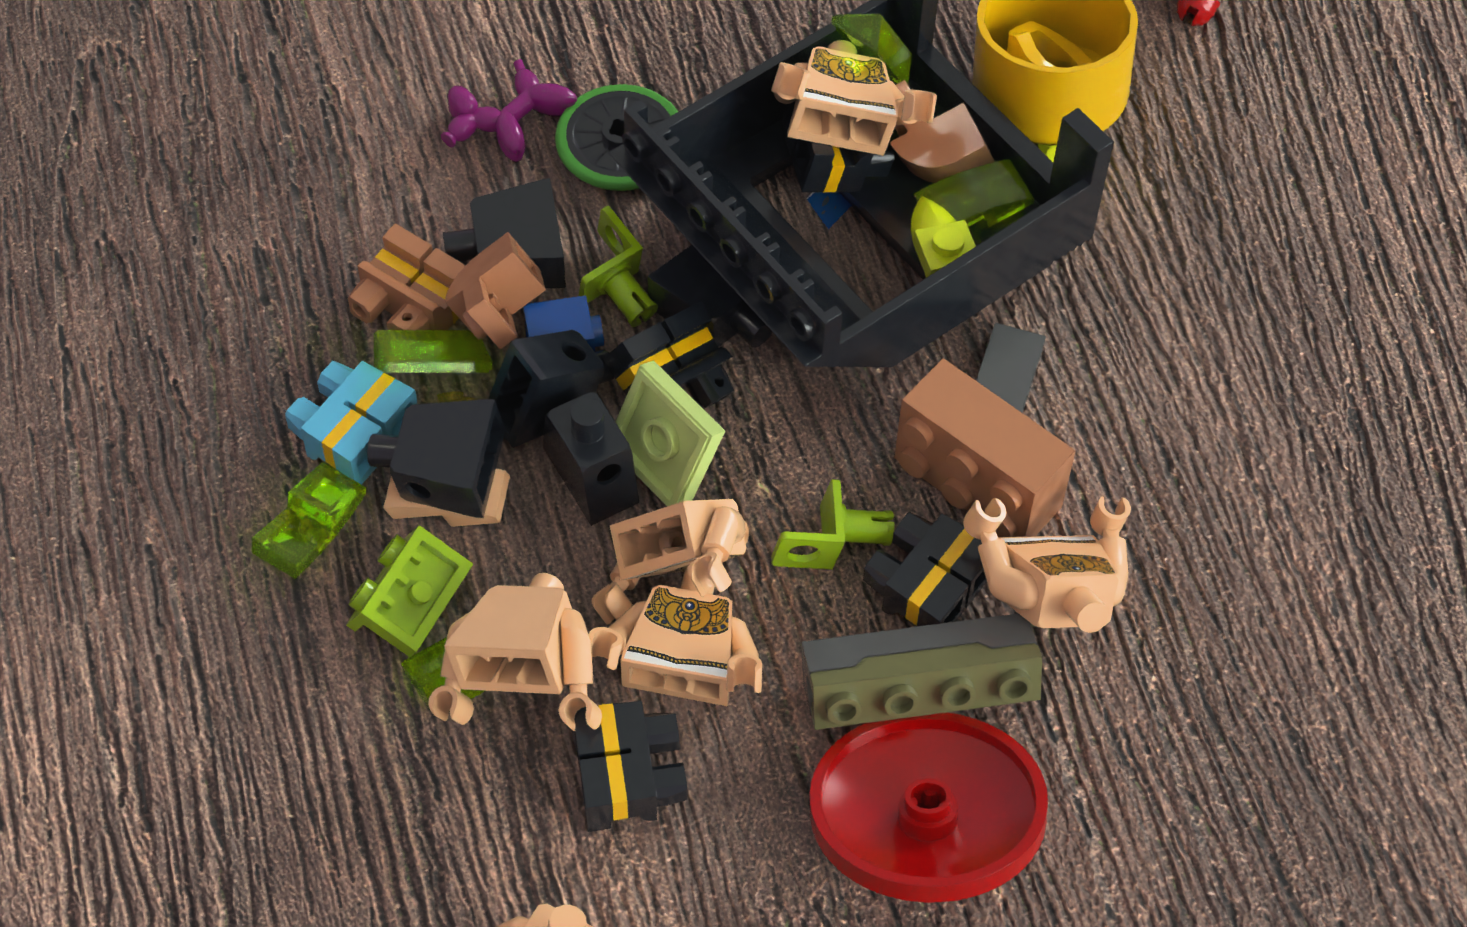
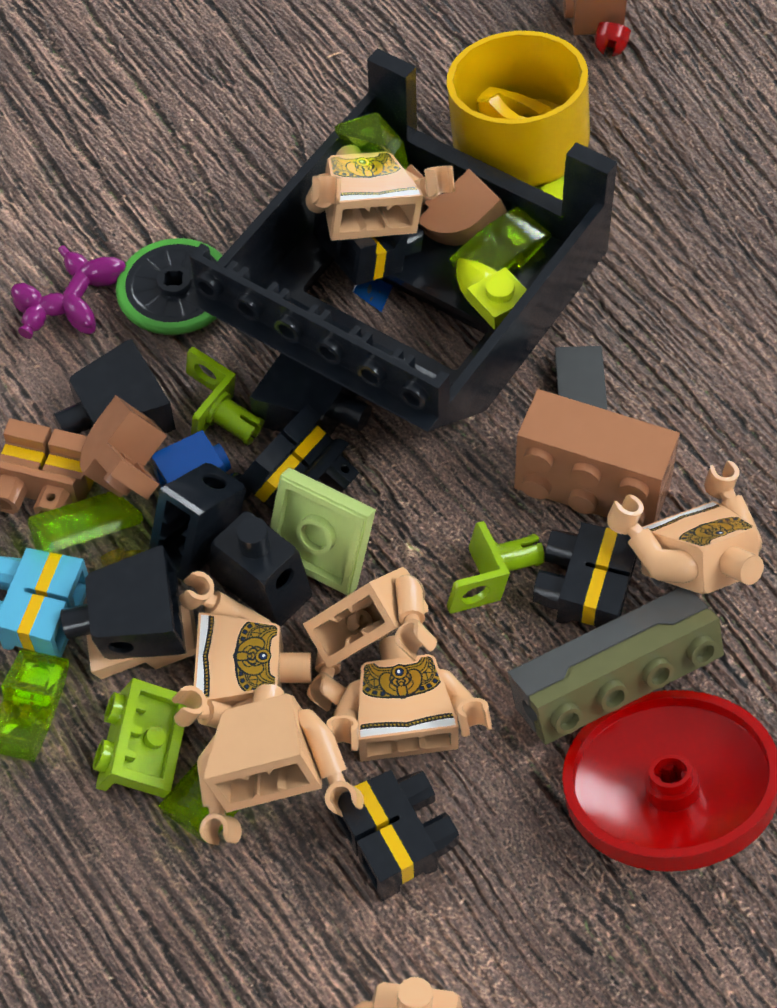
camera: 15 degrees left, 0 degrees up
(529, 534) = (233, 655): none -> light nougat torso

